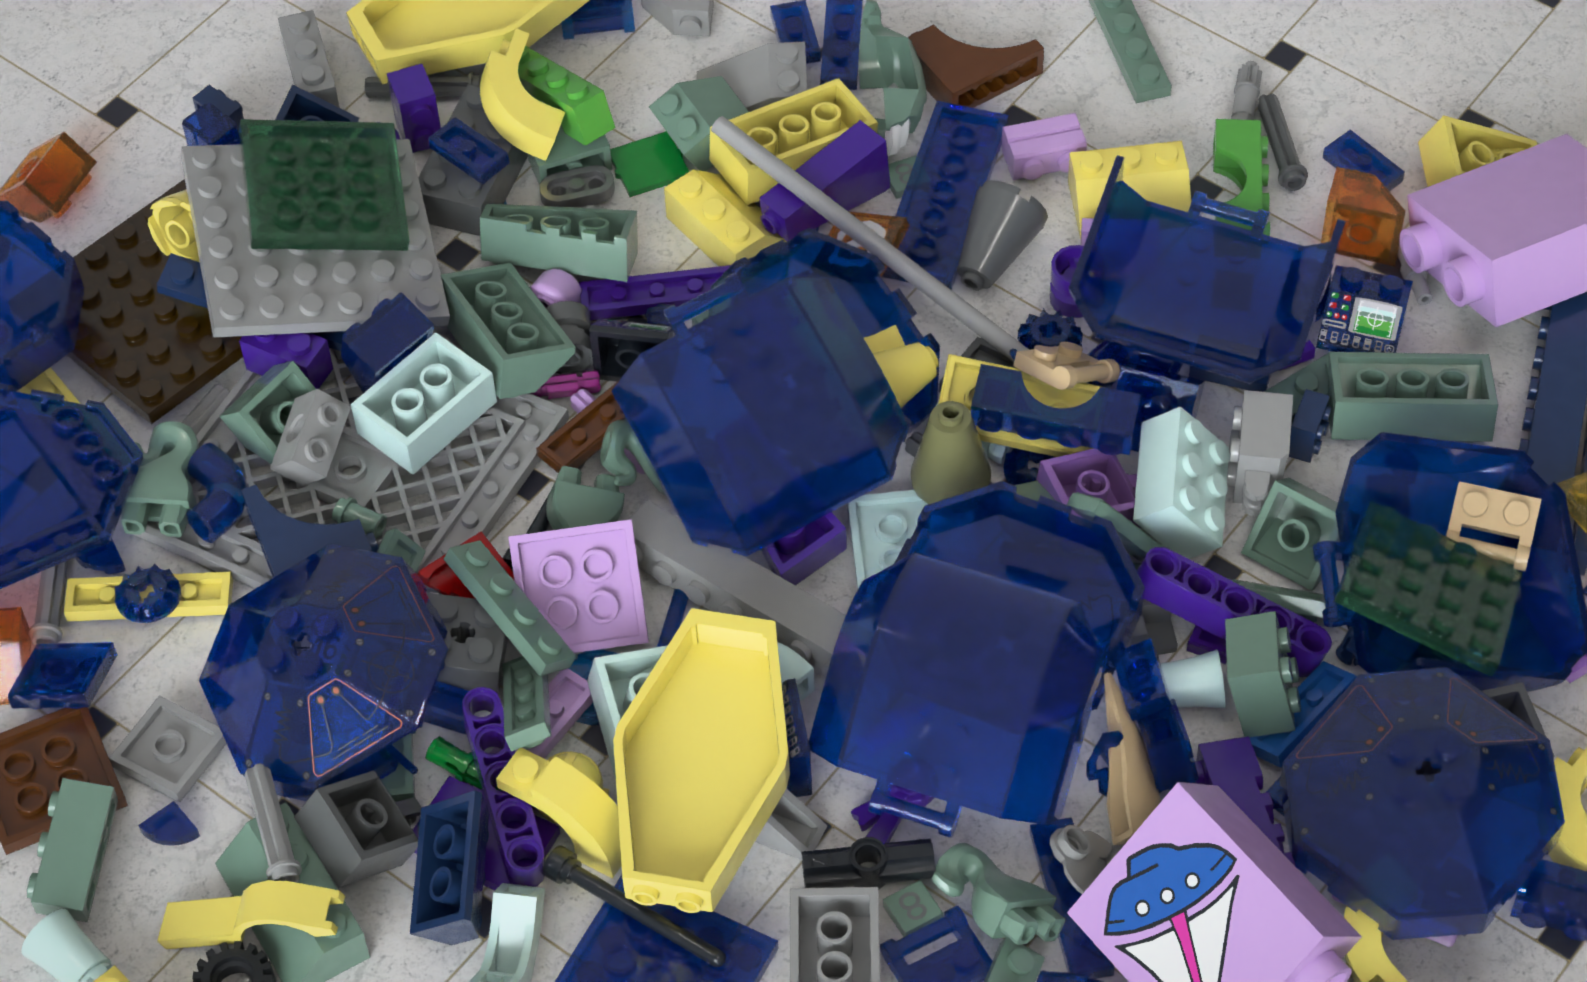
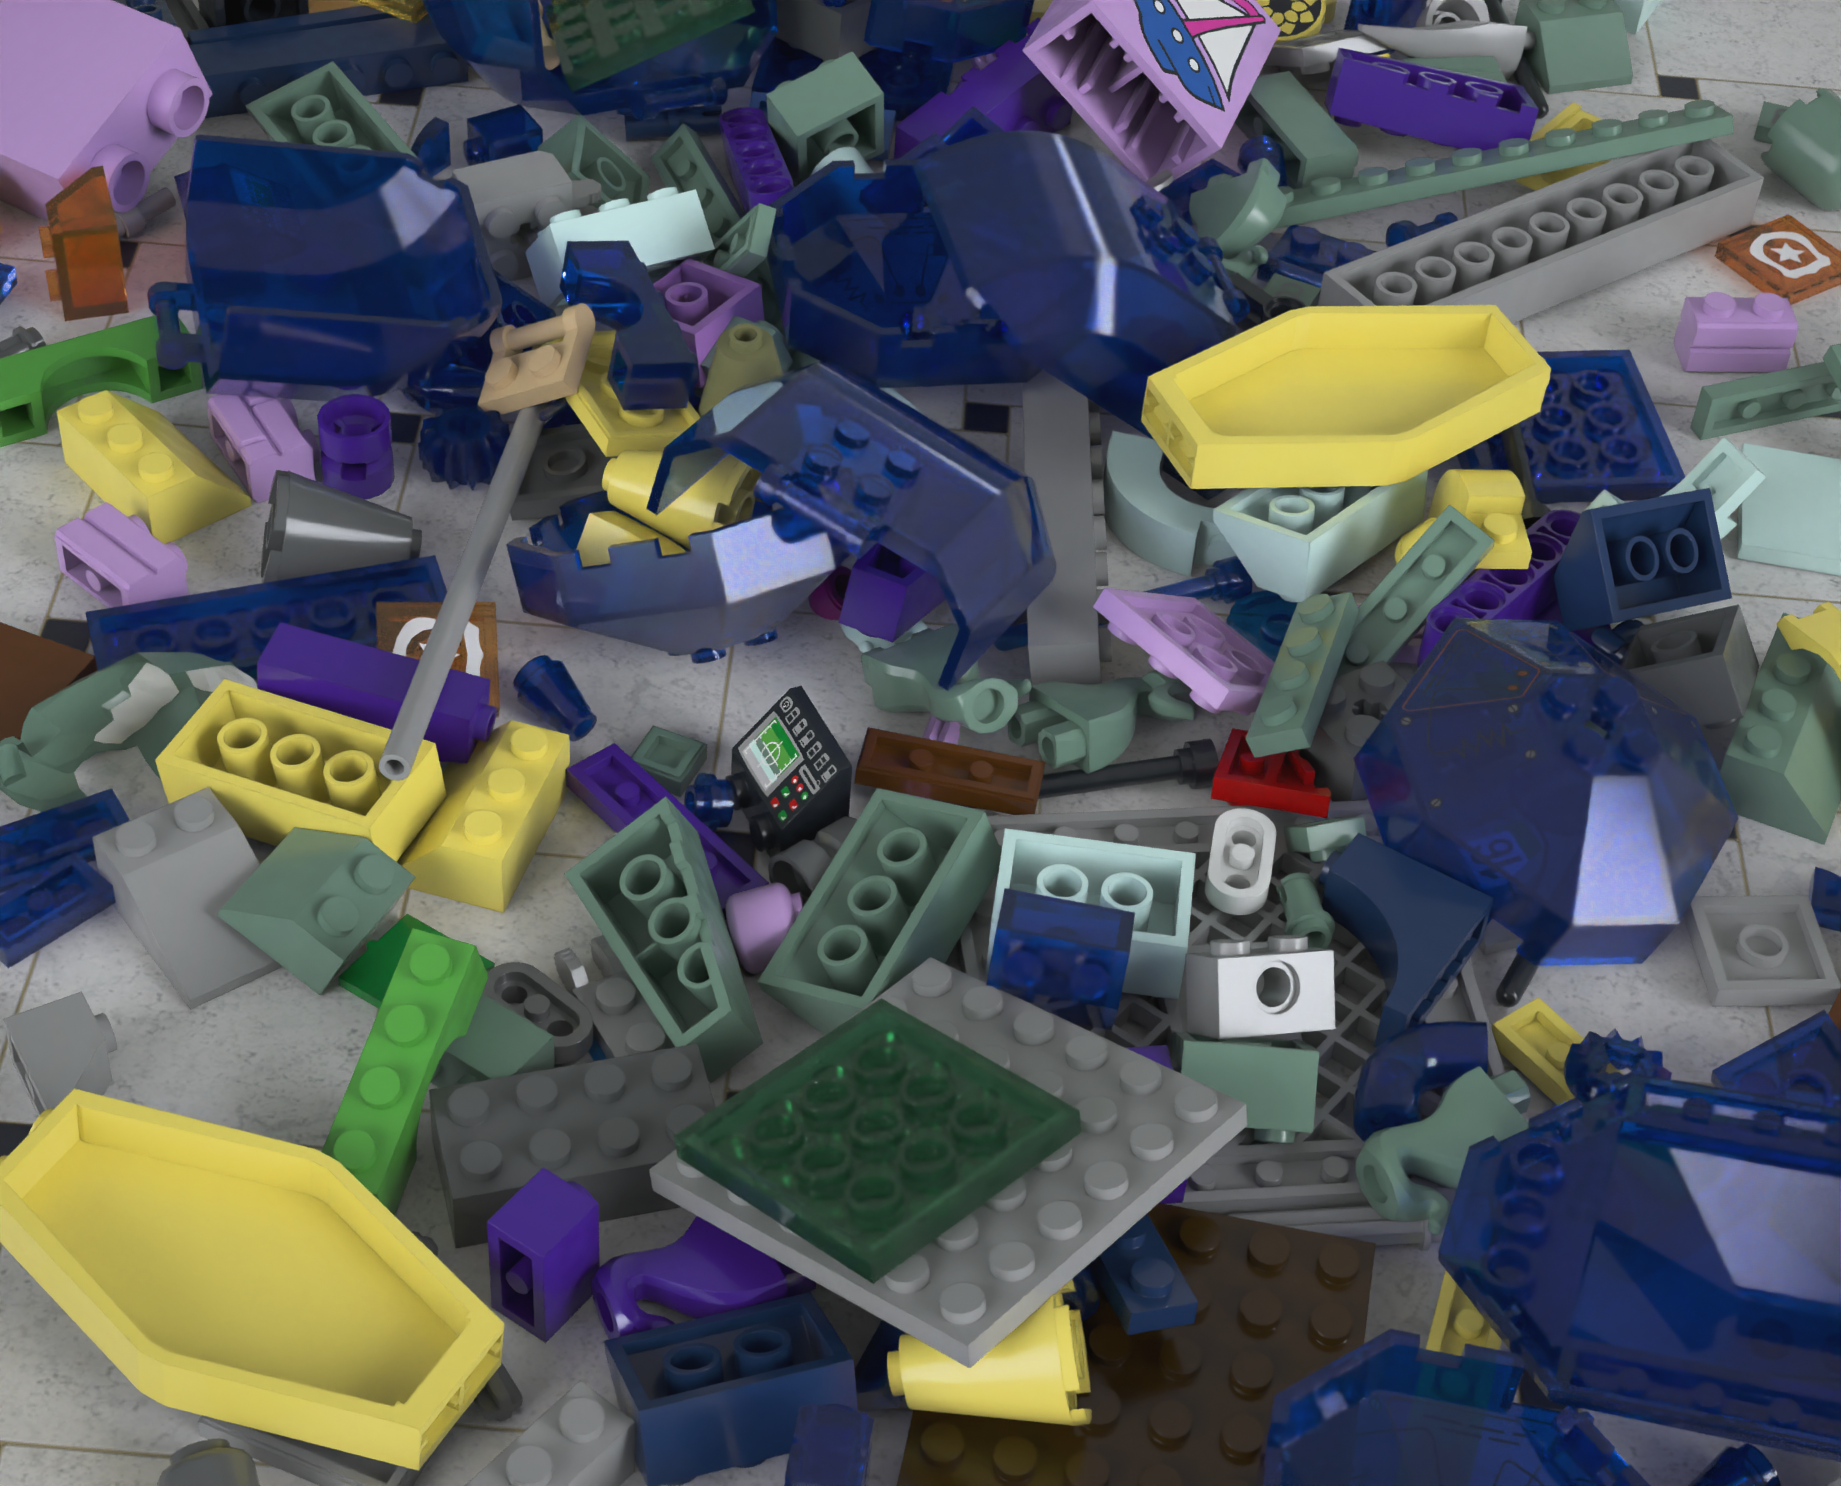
camera: 130 degrees left, 10 degrees down
(271, 825) = (1812, 678): light grey axle -> none
(418, 512) = (1240, 861): none -> white plate
(469, 150) = (622, 1074): clear blue plate -> none
(510, 108) = (471, 1079): light yellow arch -> none

